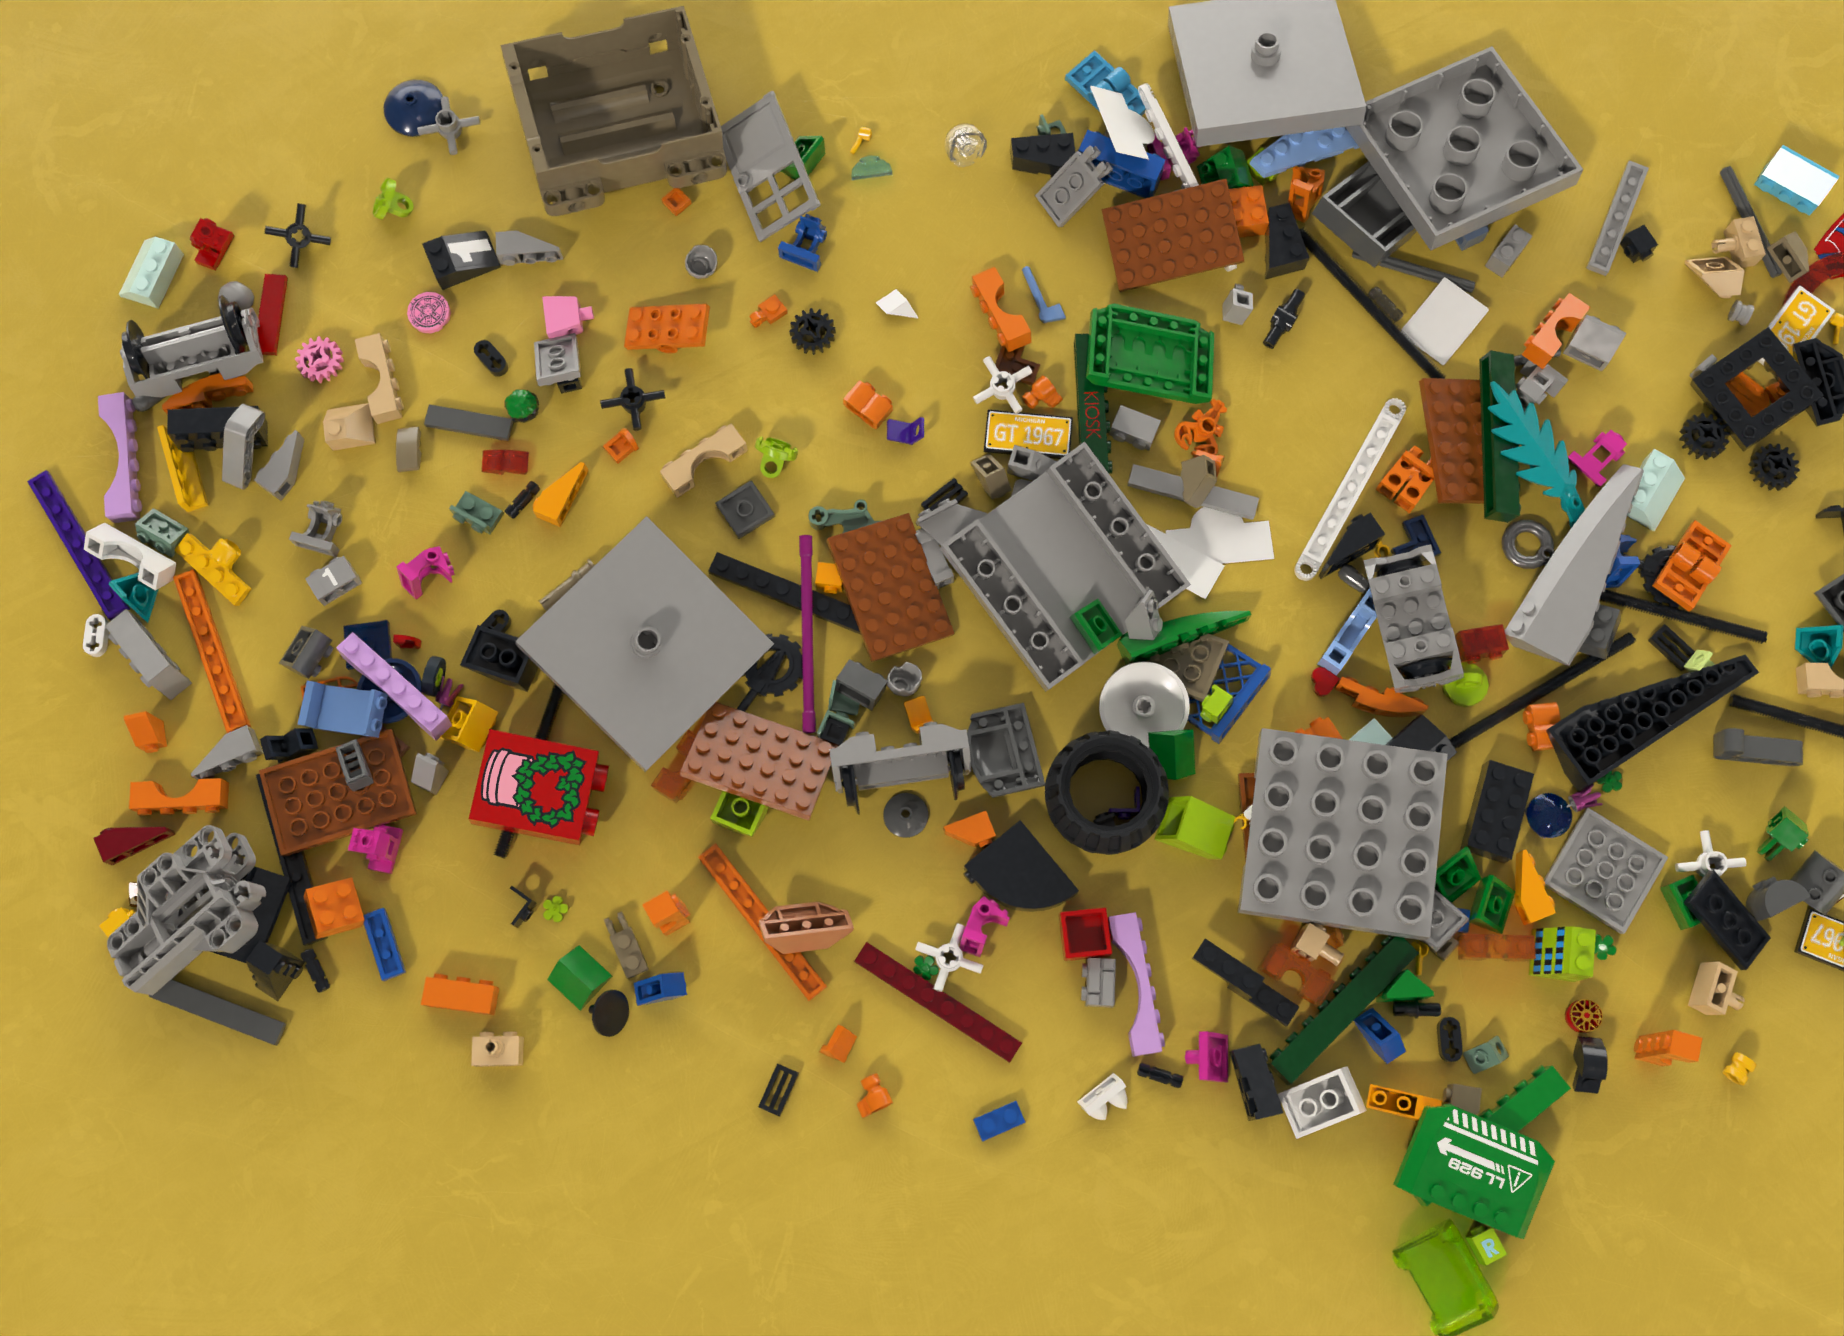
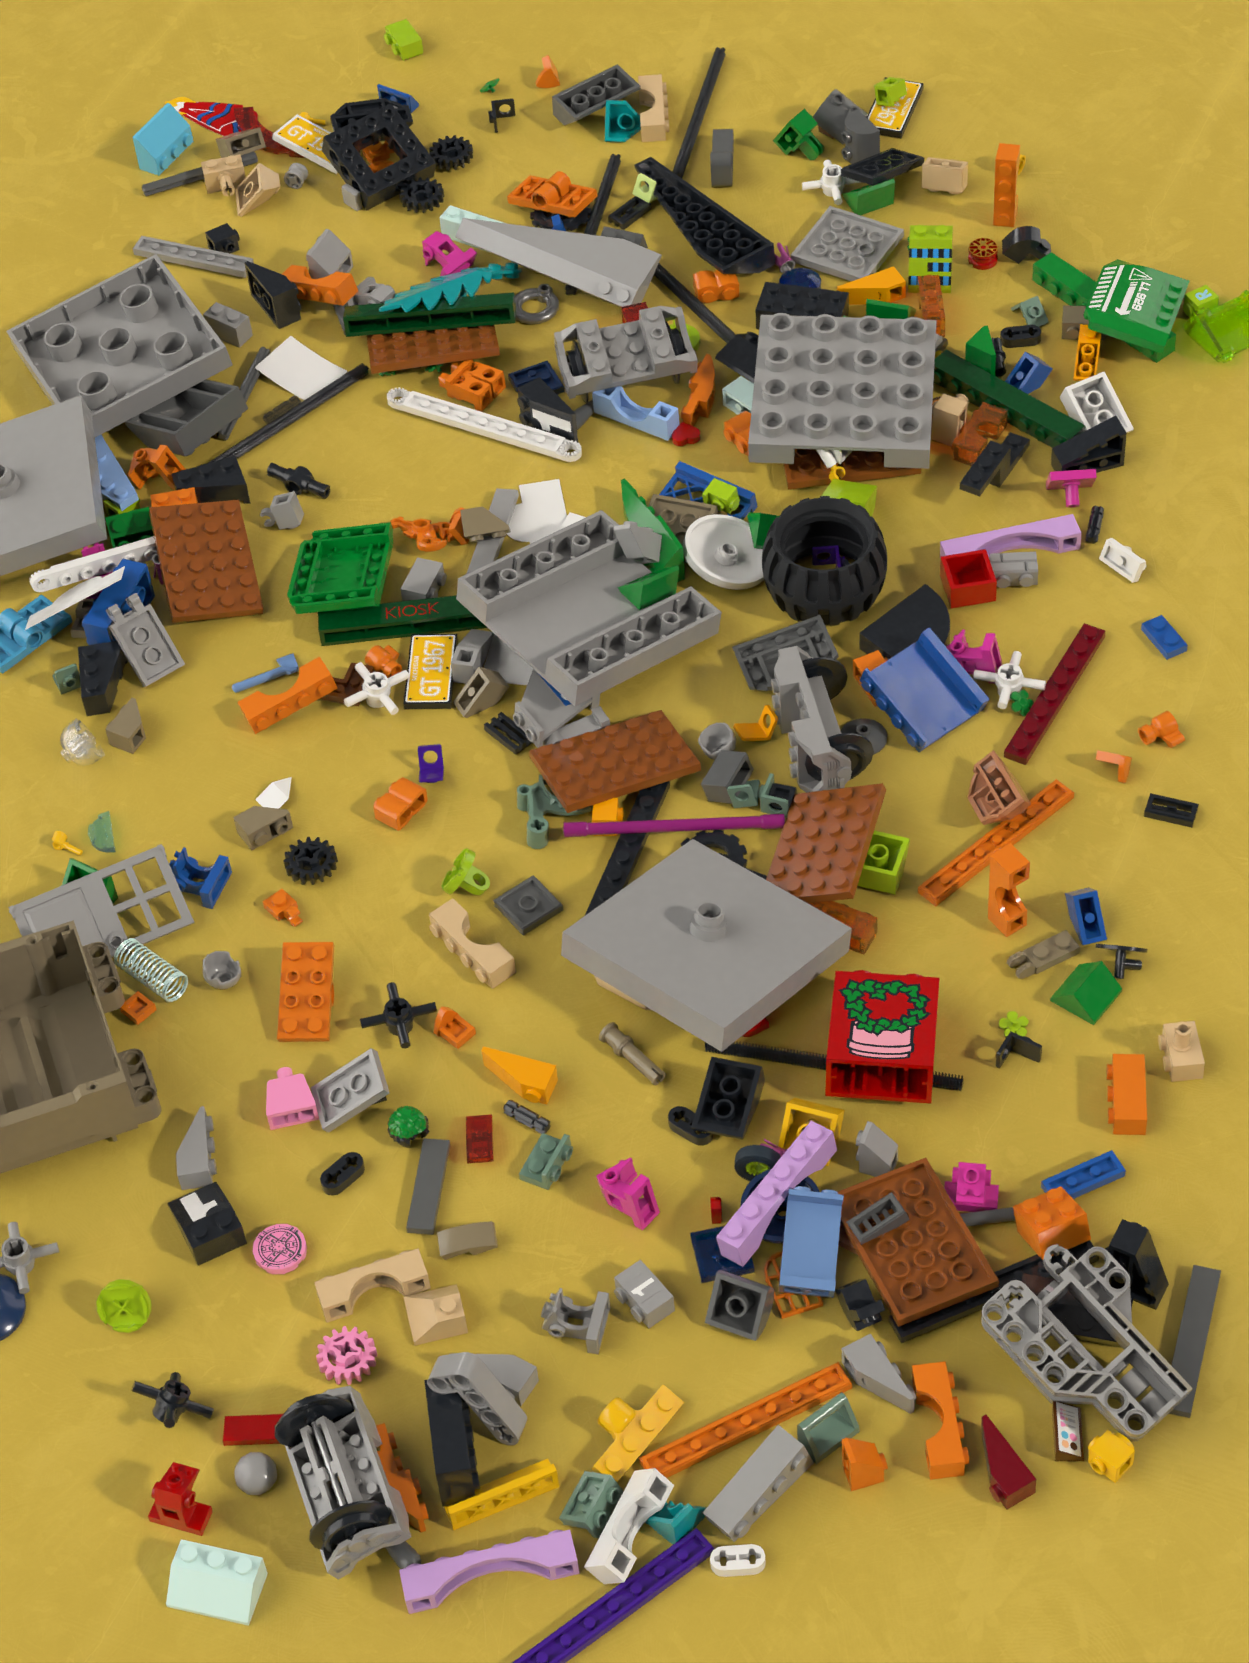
camera: 90 degrees left, 25 degrees down
(186, 709) = (829, 1433): none -> sand green tile
(362, 877) = (988, 1216): none -> dark grey piece
(735, 197) = (171, 977): none -> light aqua piece
(857, 290) = (262, 824): none -> dark tan slope
(938, 870) = (924, 691): none -> panel
(983, 182) = (126, 728): none -> dark tan slope
(1538, 291) = (274, 294): none -> black slope

